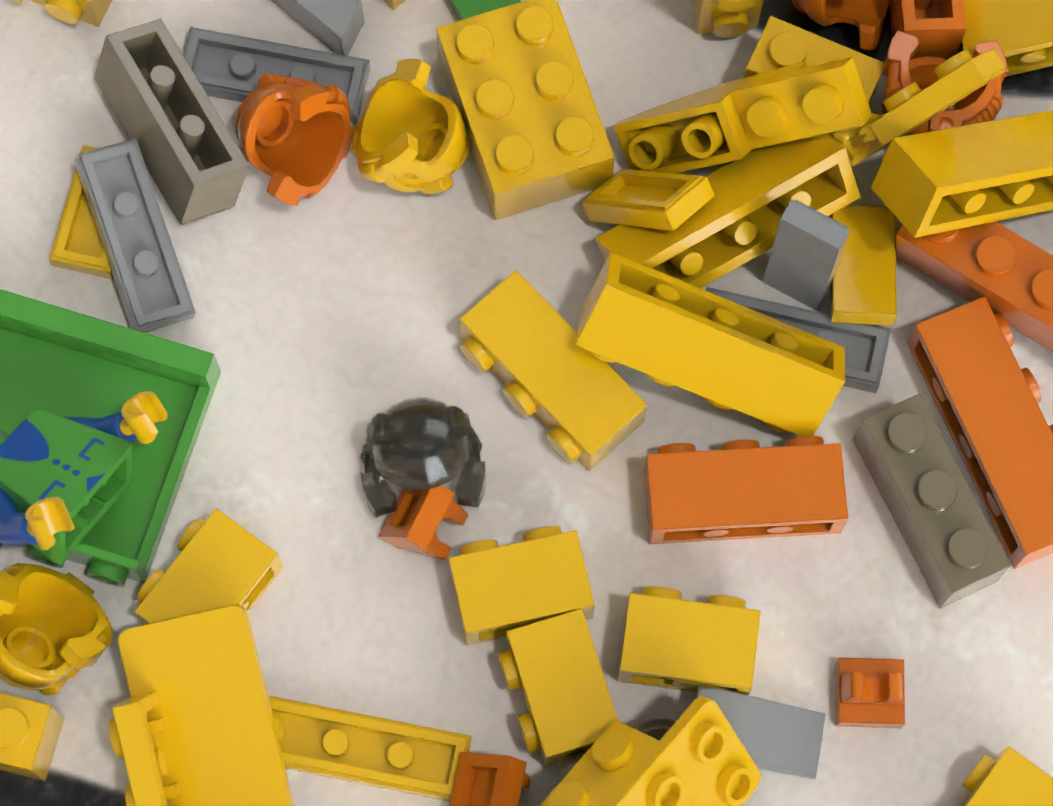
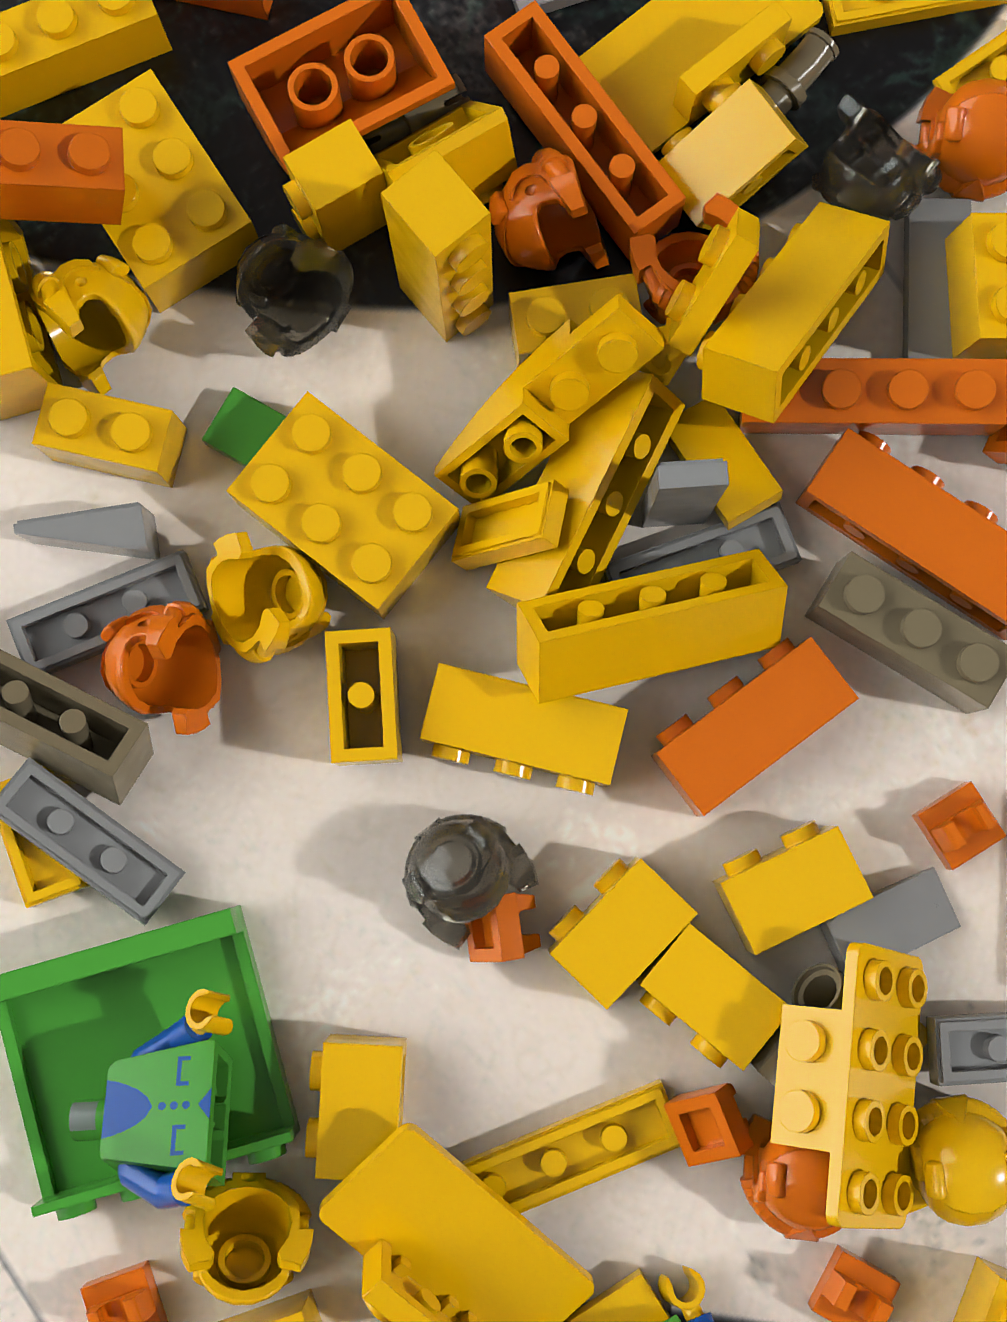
camera: 30 degrees left, 10 degrees up
(436, 261) = (363, 696): none -> yellow brick

